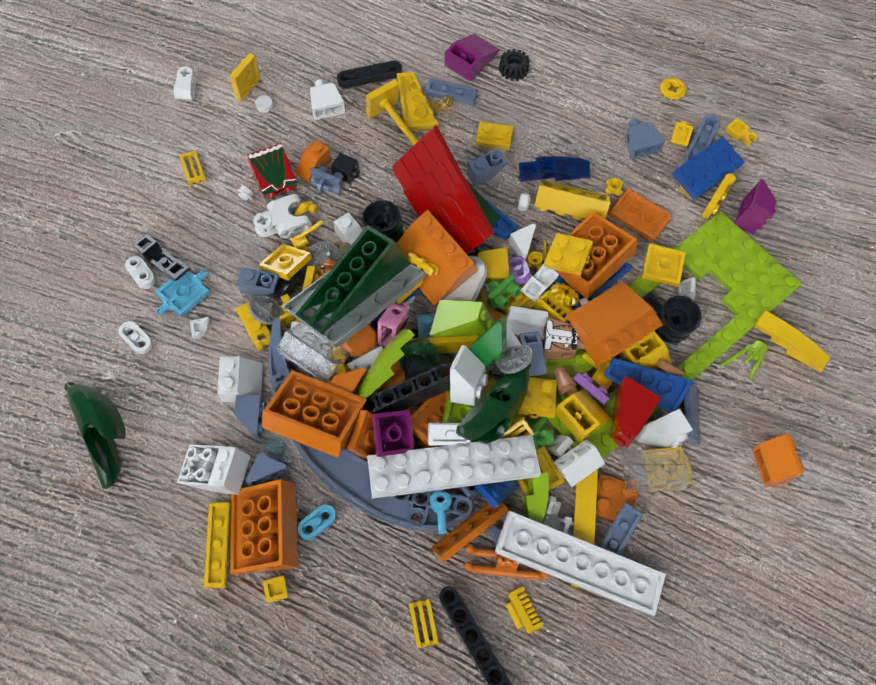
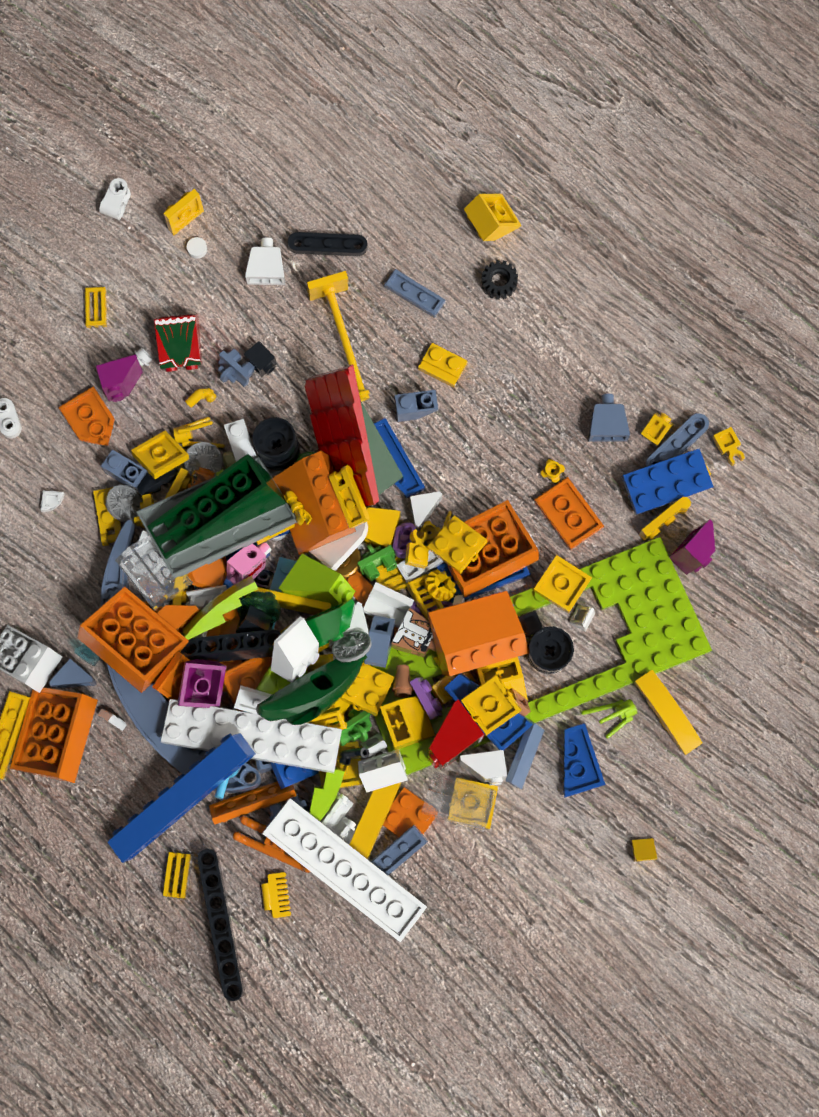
camera: 20 degrees right, 10 degrees up
(160, 259) = (32, 410): slope -> none
(182, 294) = (44, 456): medium azure plate -> none
(213, 252) = (89, 417): none -> orange tile
(230, 209) = (119, 377): none -> magenta slope
(239, 377) = (75, 572): white slope -> none
(249, 413) = (74, 611): sand blue slope -> none
(275, 589) = (48, 797): yellow plate -> none
(279, 218) = (169, 400): white piece -> none
(313, 157) = (228, 337): orange slope -> none
(314, 497) = (112, 719): none -> white tile
(316, 522) = (107, 744): medium azure plate -> none
(406, 545) = (181, 797): none -> blue brick
(414, 105) = (364, 301): yellow wing -> none
(442, 105) = (398, 308): clear yellow arm -> none
(466, 239) = (349, 497): none -> yellow plate
(469, 56) = (452, 253): magenta slope -> none
(489, 24) = (491, 216): none -> yellow slope
(524, 202) = (443, 459): white tile -> none
(535, 273) = (416, 552): none -> yellow plate
(548, 456) = (355, 753): none -> black arm
(554, 167) = (492, 430): clear blue slope -> none
(571, 200) = (497, 474): yellow slope -> none
(654, 371) = (491, 704): none -> yellow plate
(675, 84) = (681, 360): yellow gear -> none
(739, 405) = (580, 762): none -> blue wing
(778, 461) = (588, 834): orange slope -> none
(825, 462) = (644, 850): none -> yellow slope

